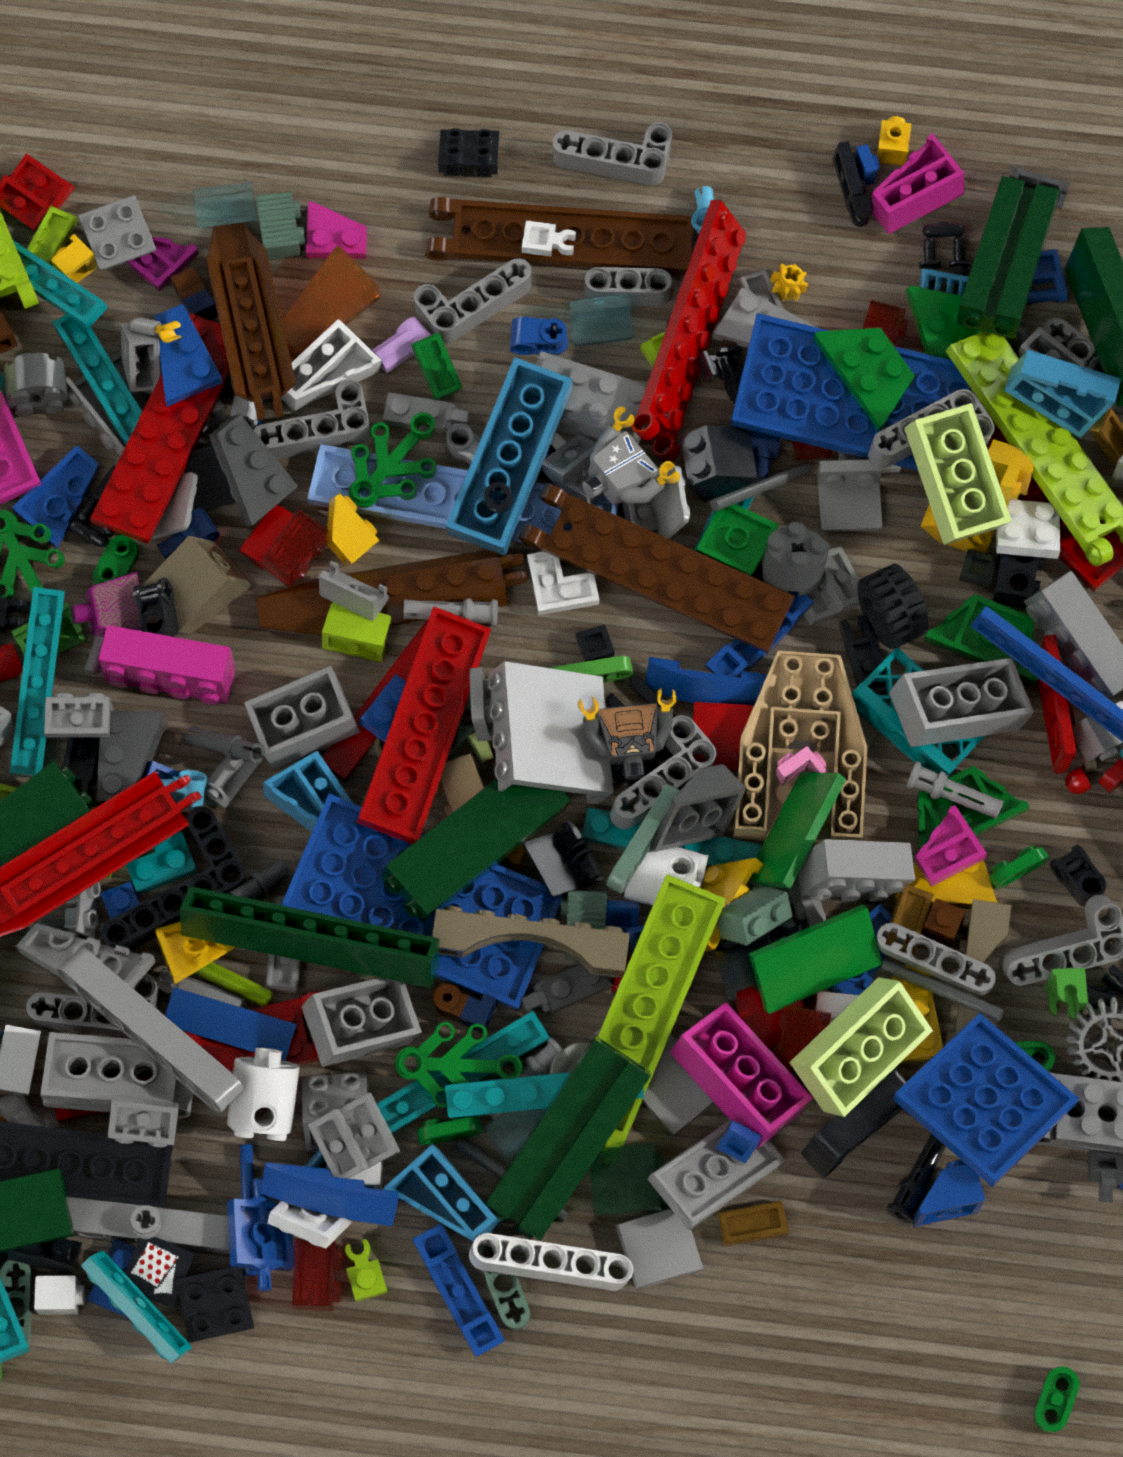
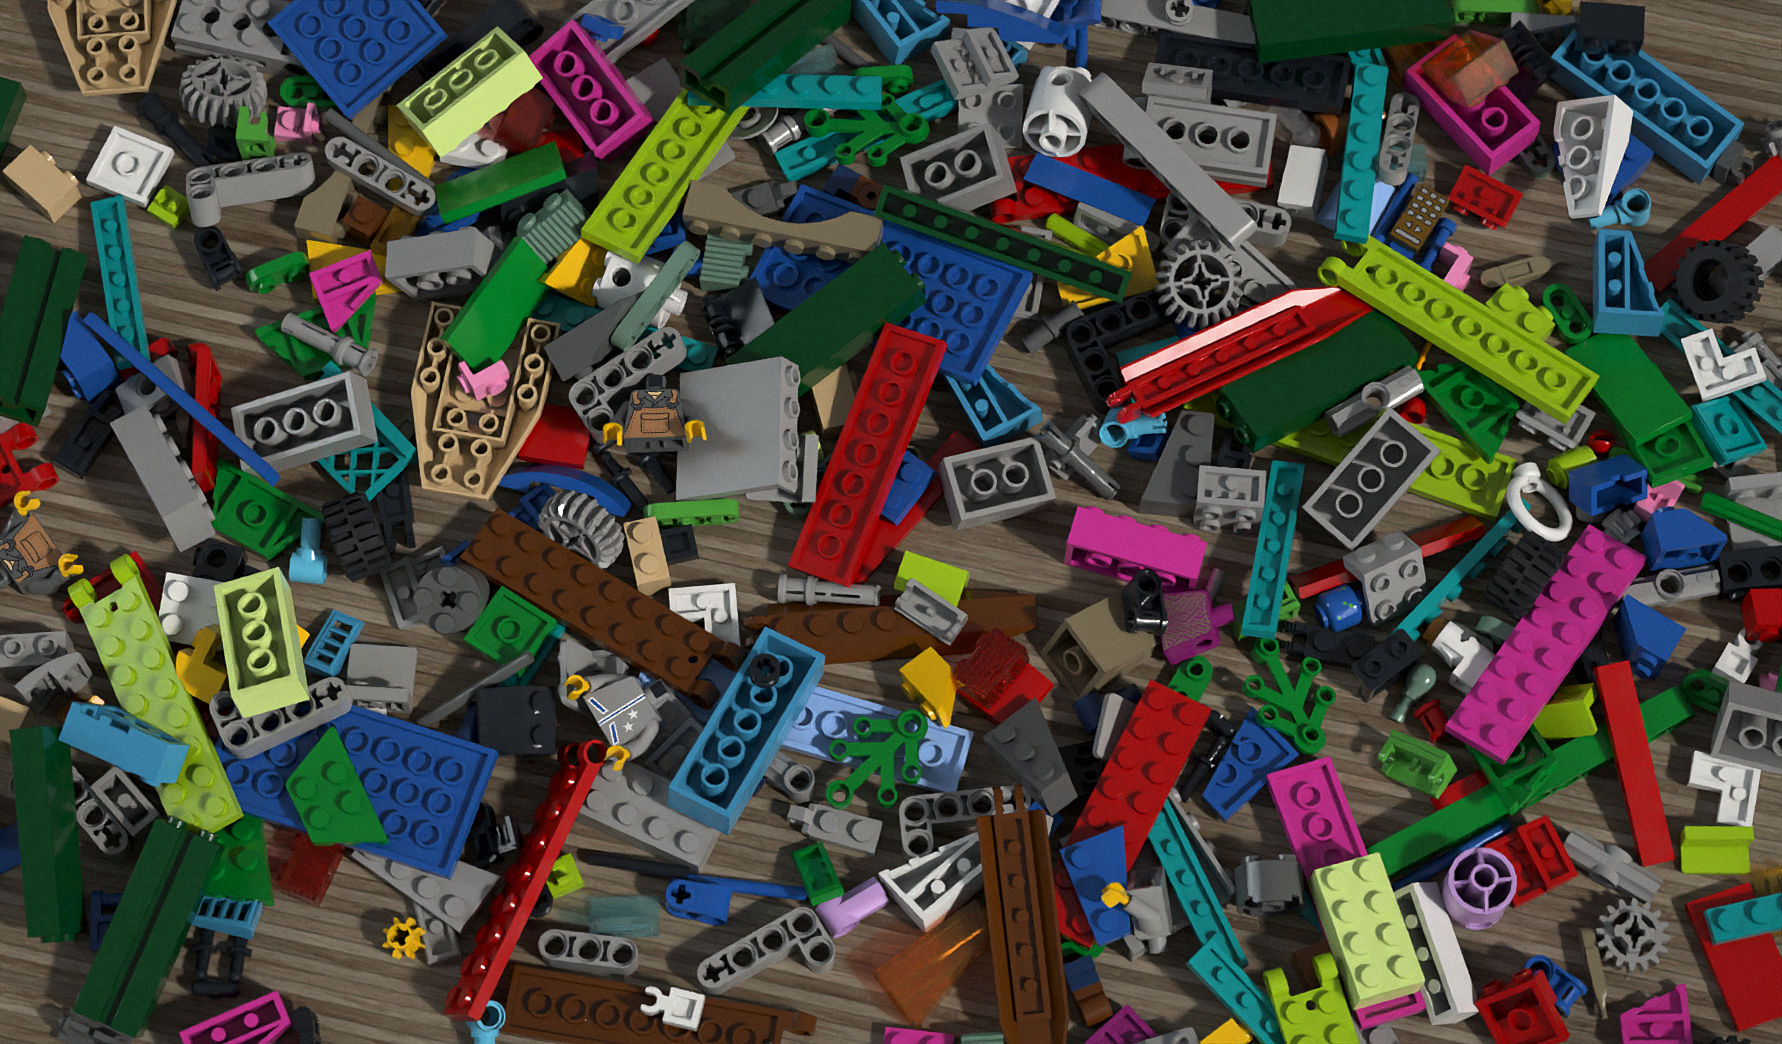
camera: 175 degrees left, 0 degrees up
(132, 926) = (1185, 286): none -> light grey gear
(494, 357) = (753, 887): none -> blue bar
(601, 363) = (638, 865): none -> black bar
(623, 624) = (647, 556): none -> tan brick
(685, 632) = (582, 527): none -> light grey gear
(902, 507) = (324, 669): none -> dark azure slope
(936, 595) = (308, 561): none -> medium azure pin
(1030, 1025) = (297, 124): none -> bright pink bracket

